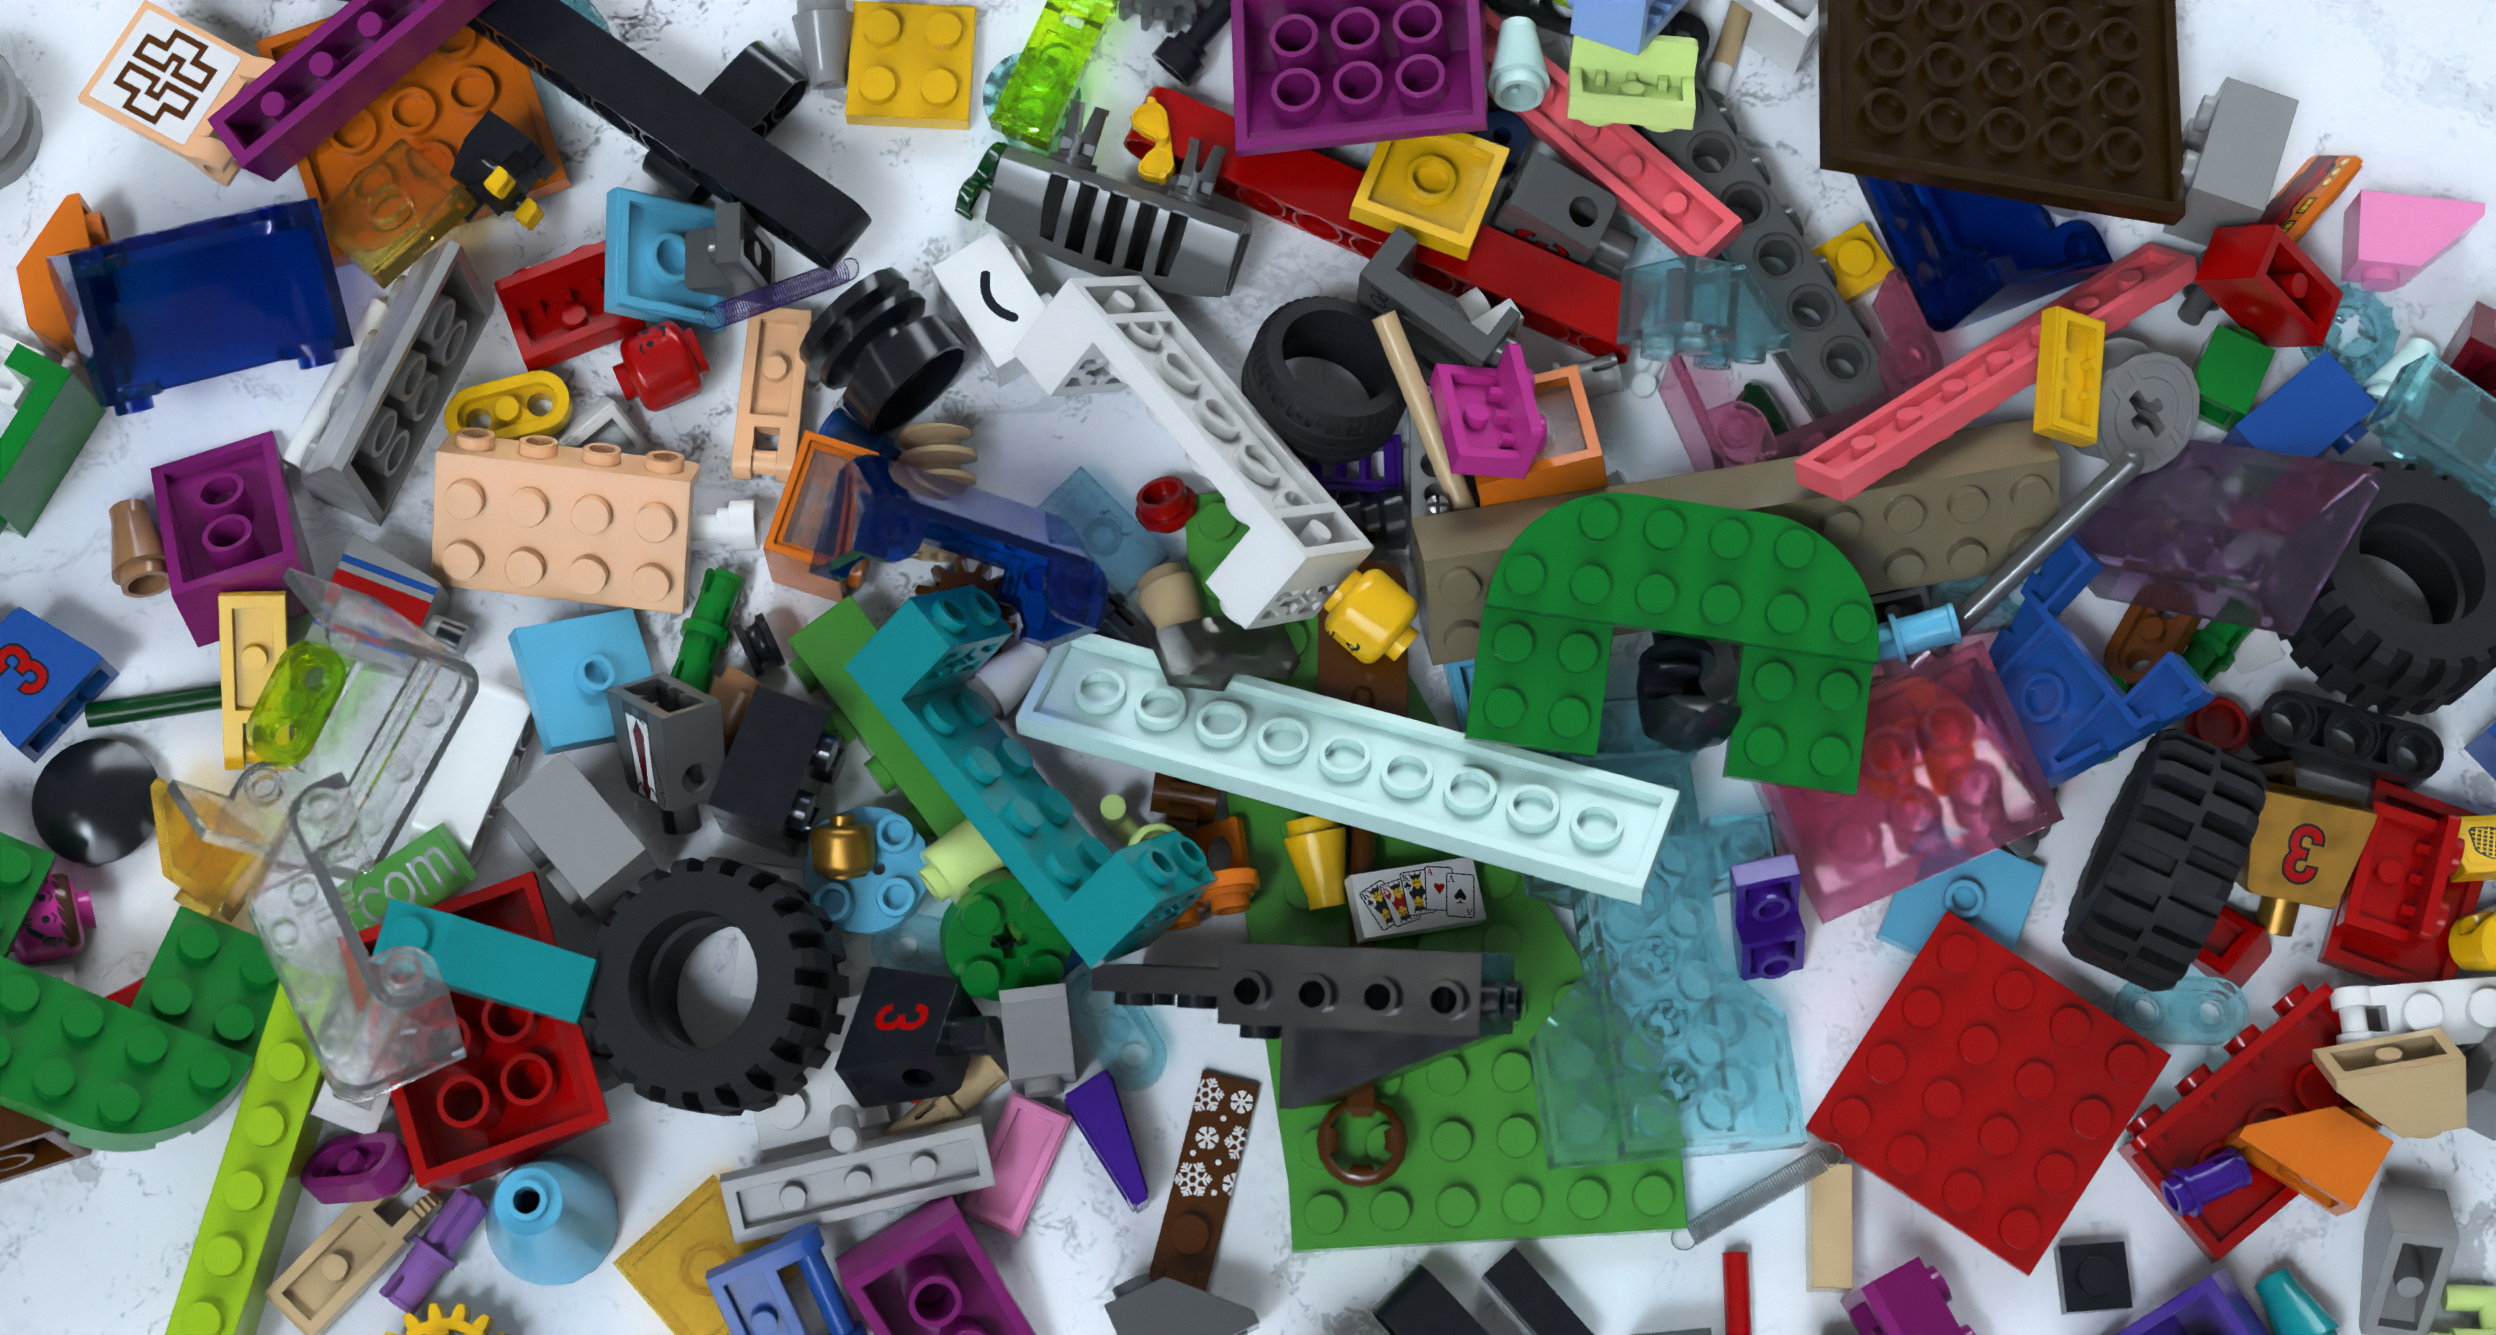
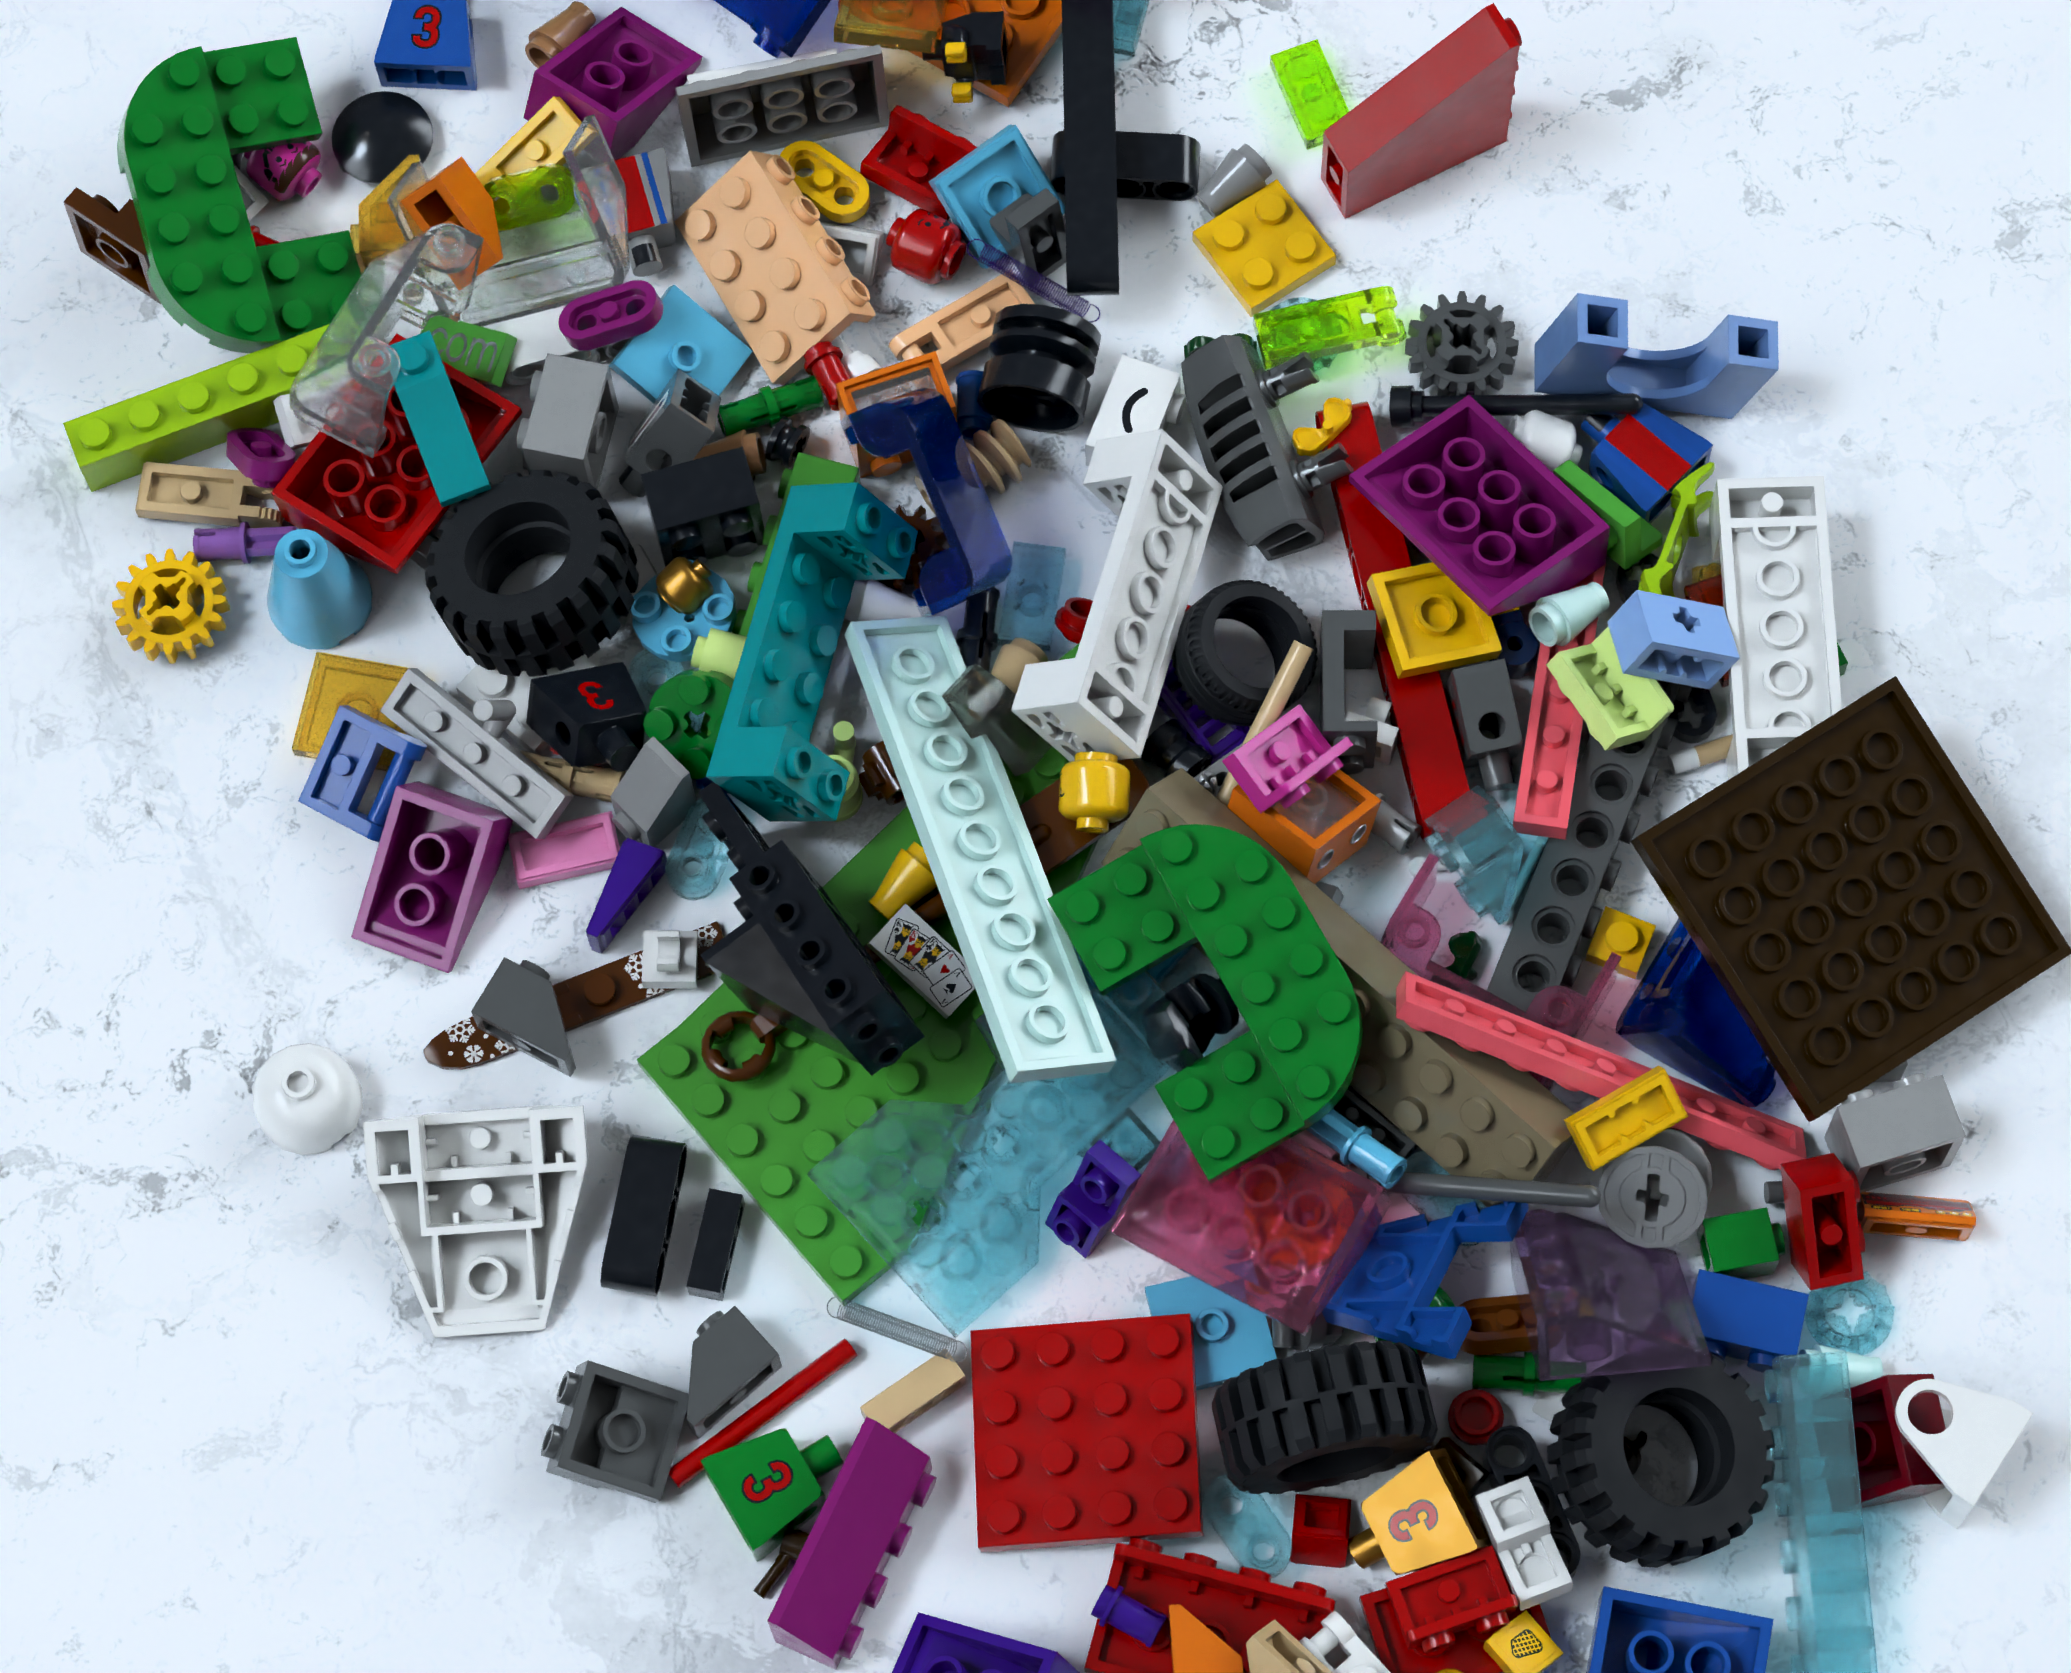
camera: 60 degrees right, 5 degrees down
(153, 705) = (464, 120): dark green bar -> none
(255, 779) = (458, 199): none -> orange slope
(498, 709) = (611, 315): none -> magenta plate
(725, 551) = (825, 364): none -> red pin
(1213, 1143) = (670, 959): none -> white tile
(1234, 884) = (841, 838): orange bracket -> none
(2092, 1278) = (1013, 1597): black plate -> none
(2395, 772) = (1524, 1543): none -> white slope
(2400, 235) = (1949, 1299): bright pink slope -> none

